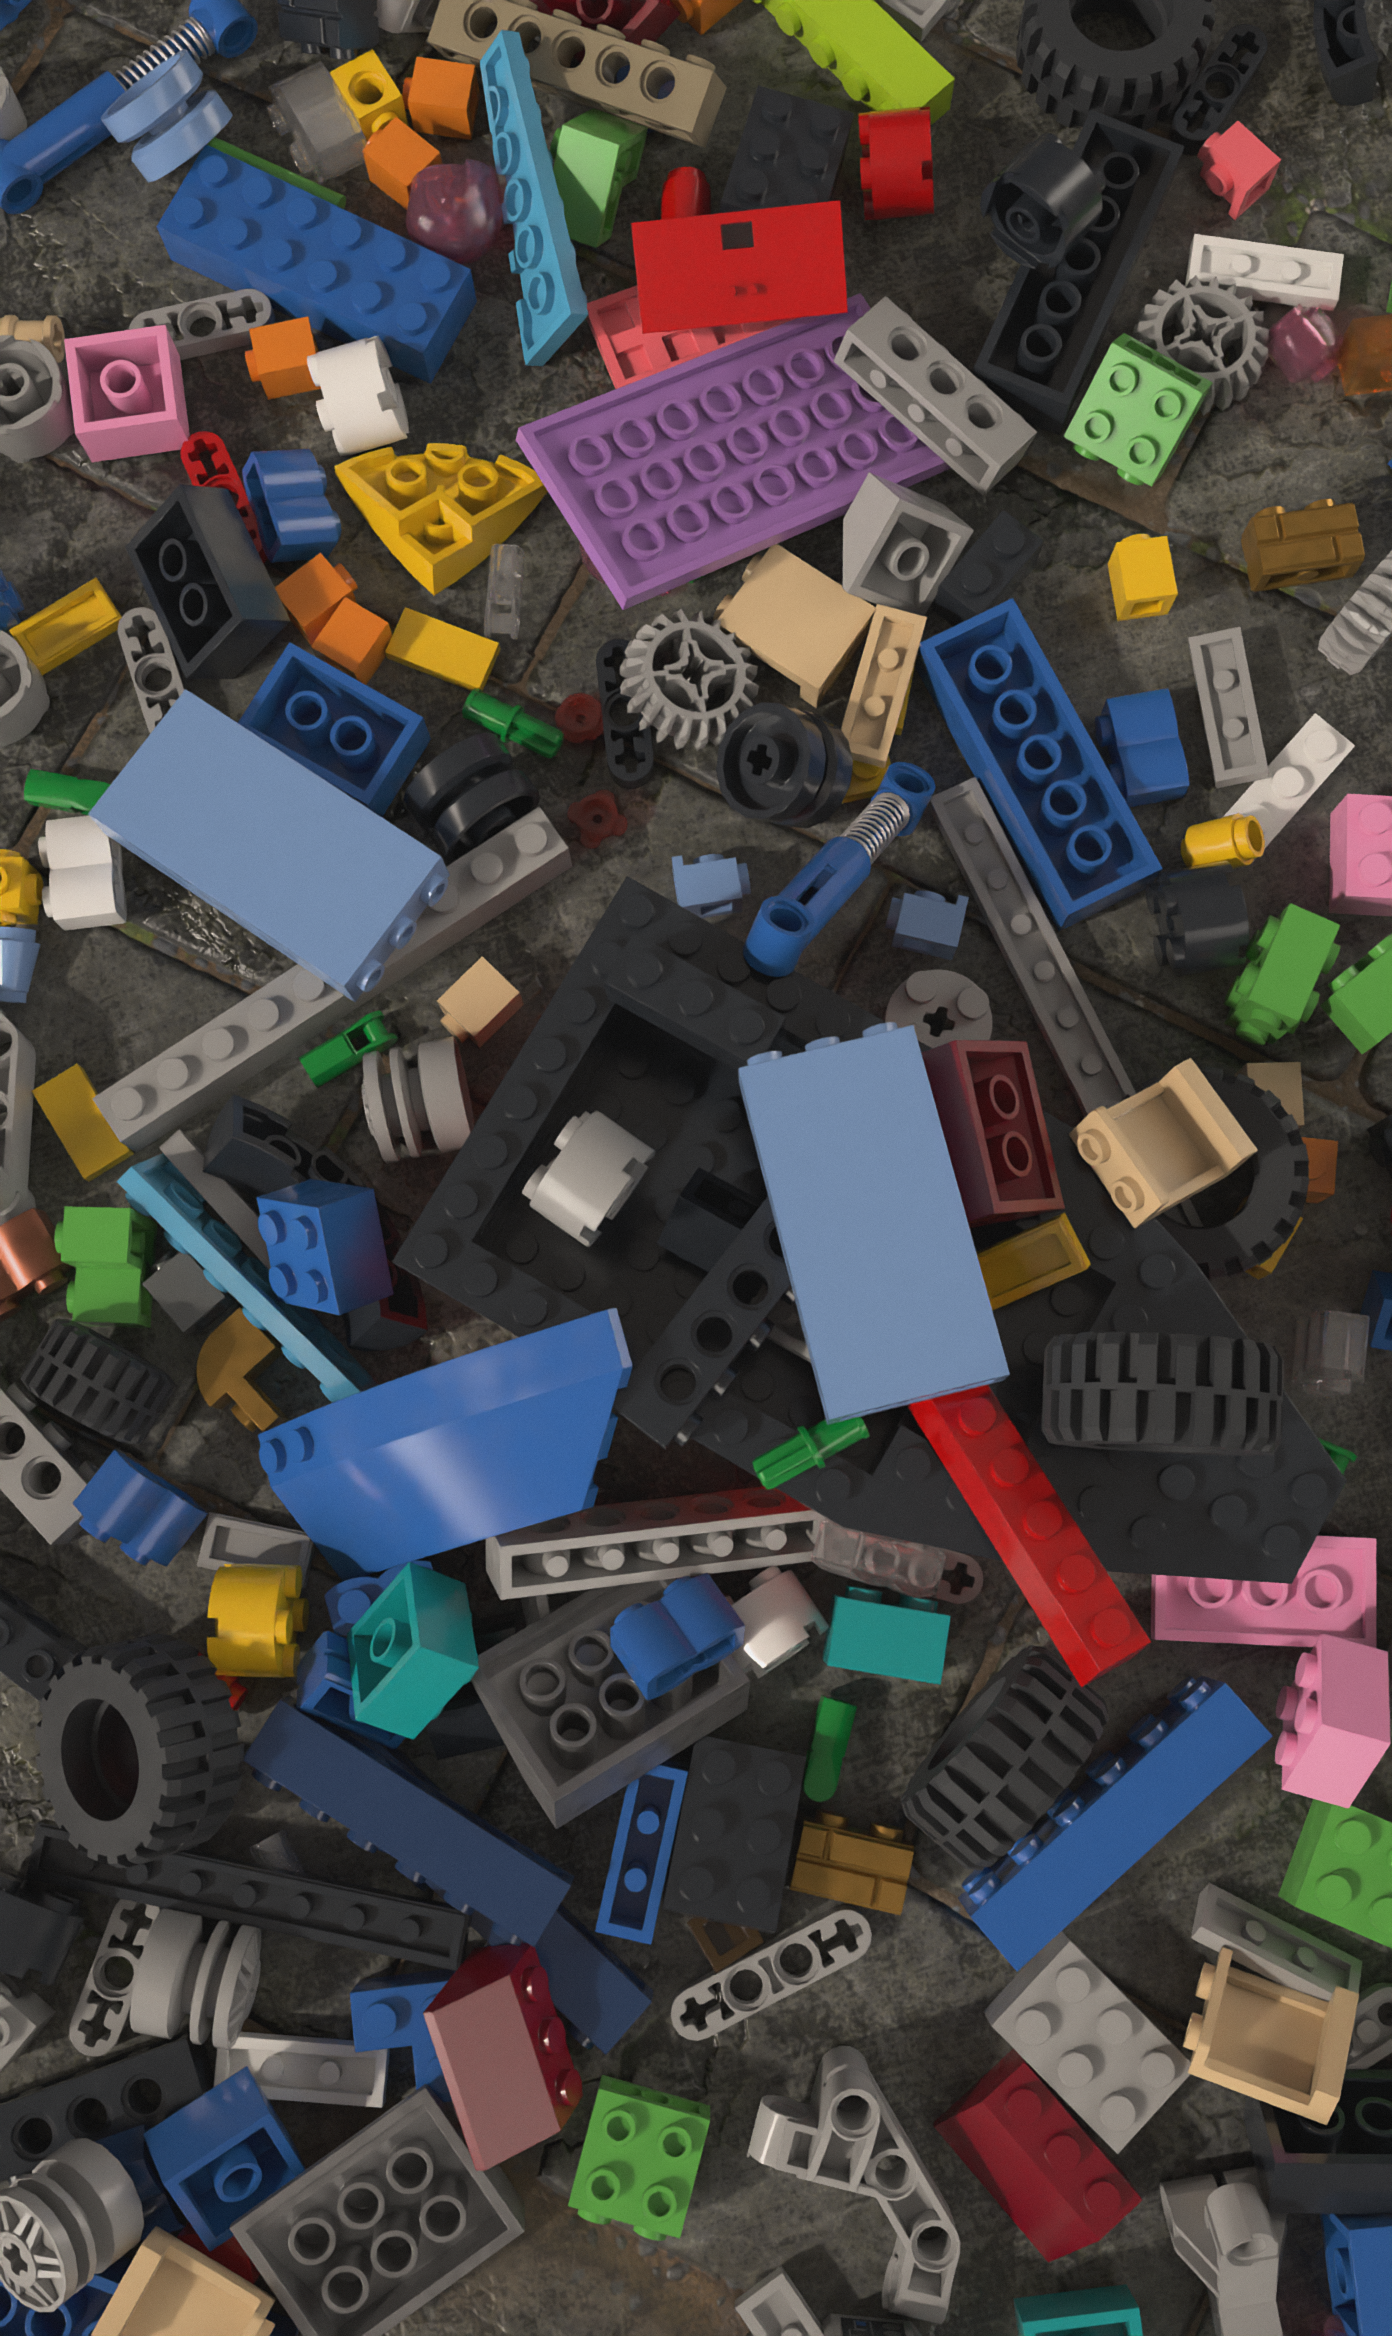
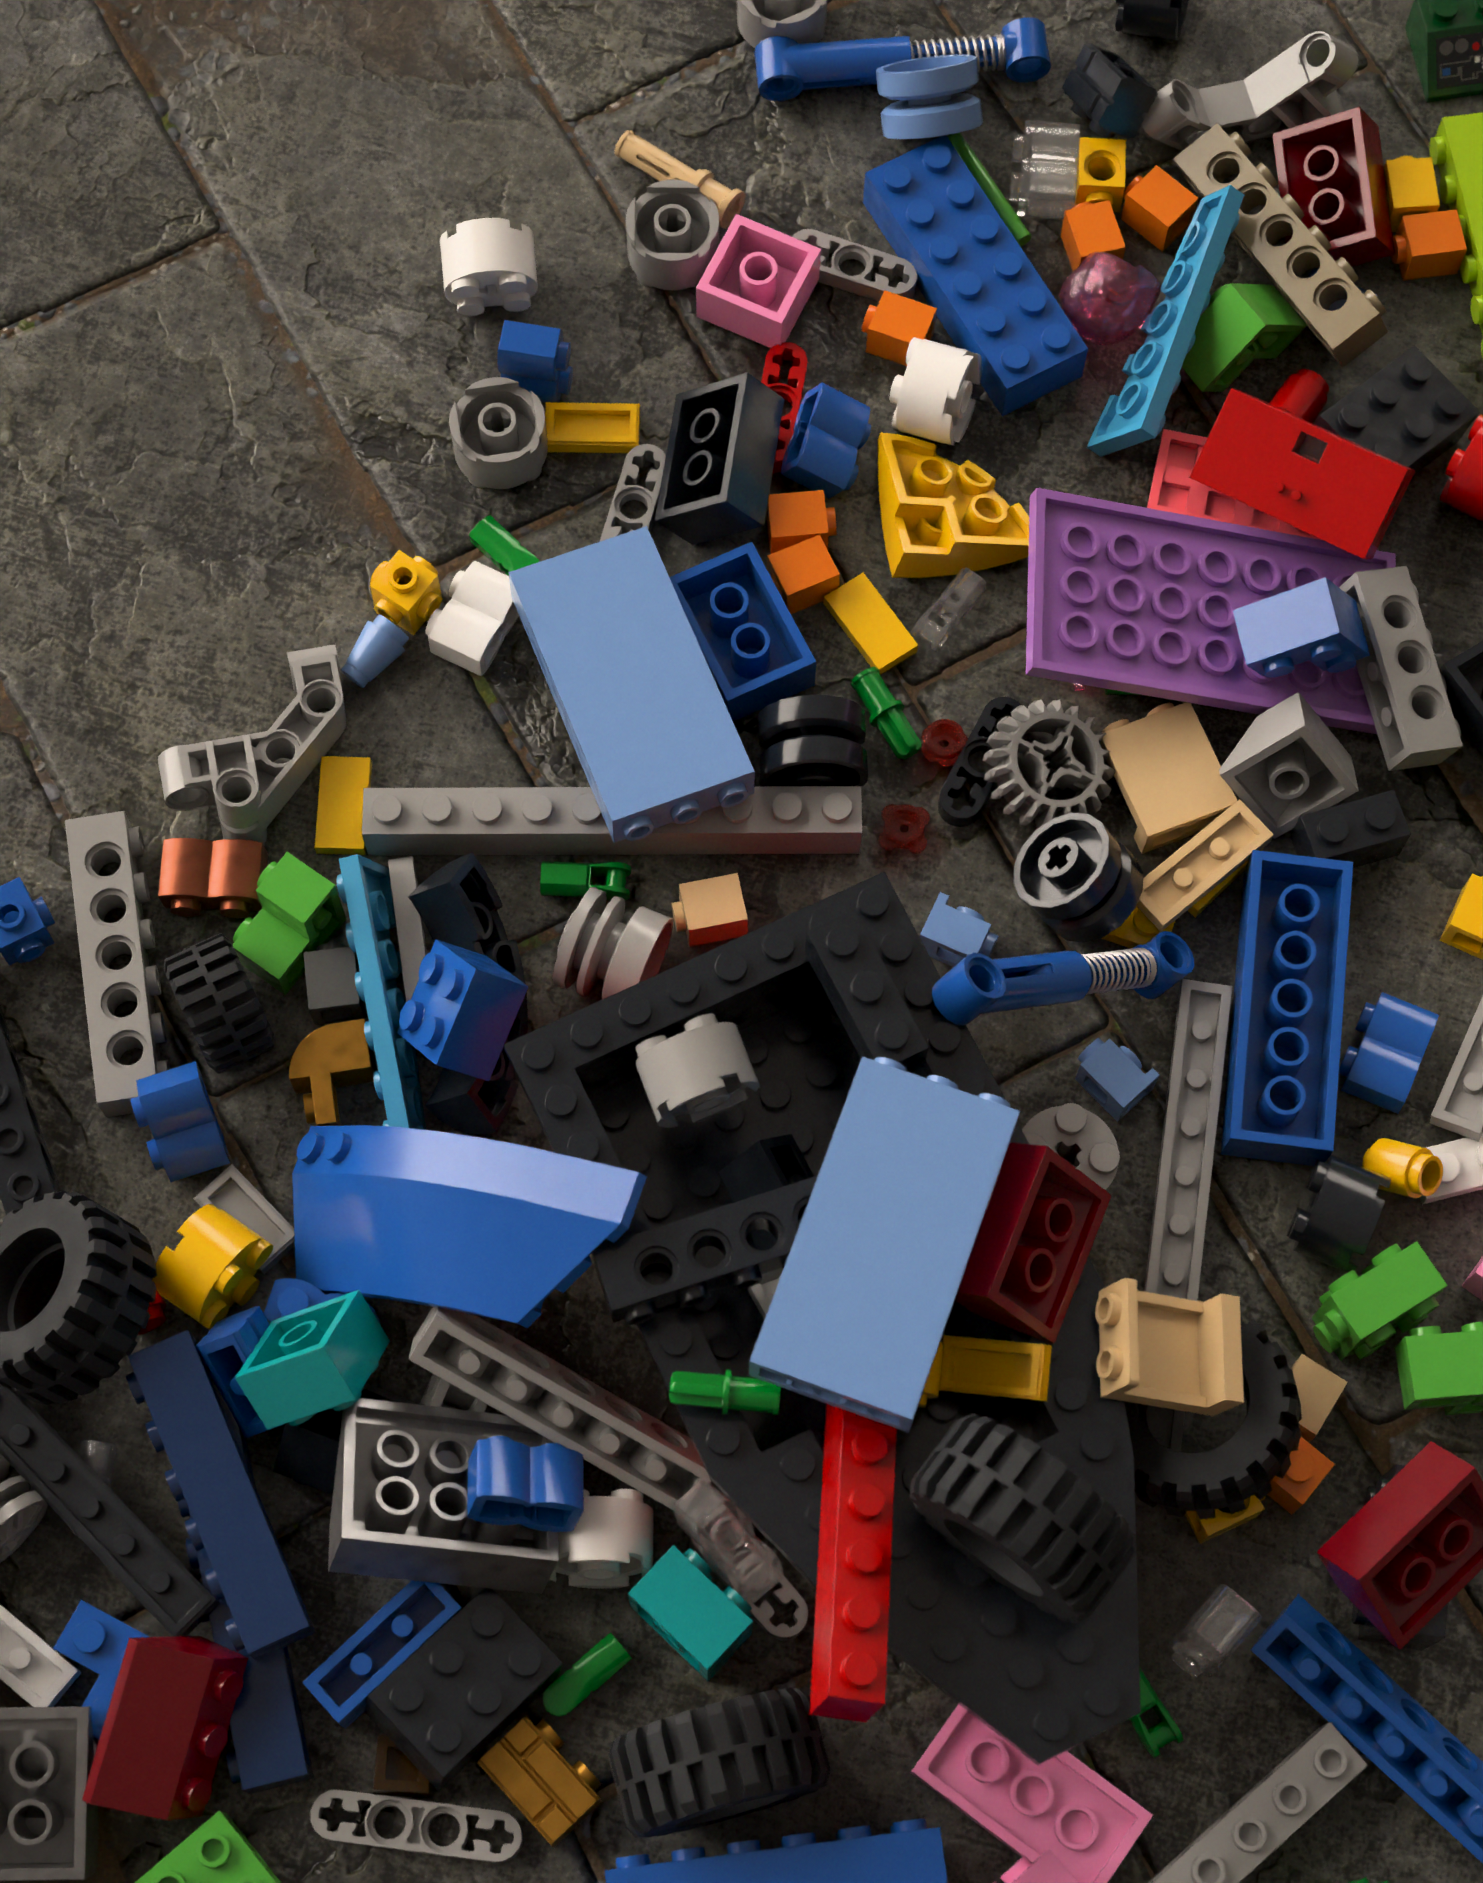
camera: 30 degrees right, 10 degrees down
(834, 410) = (1302, 625): none -> brick

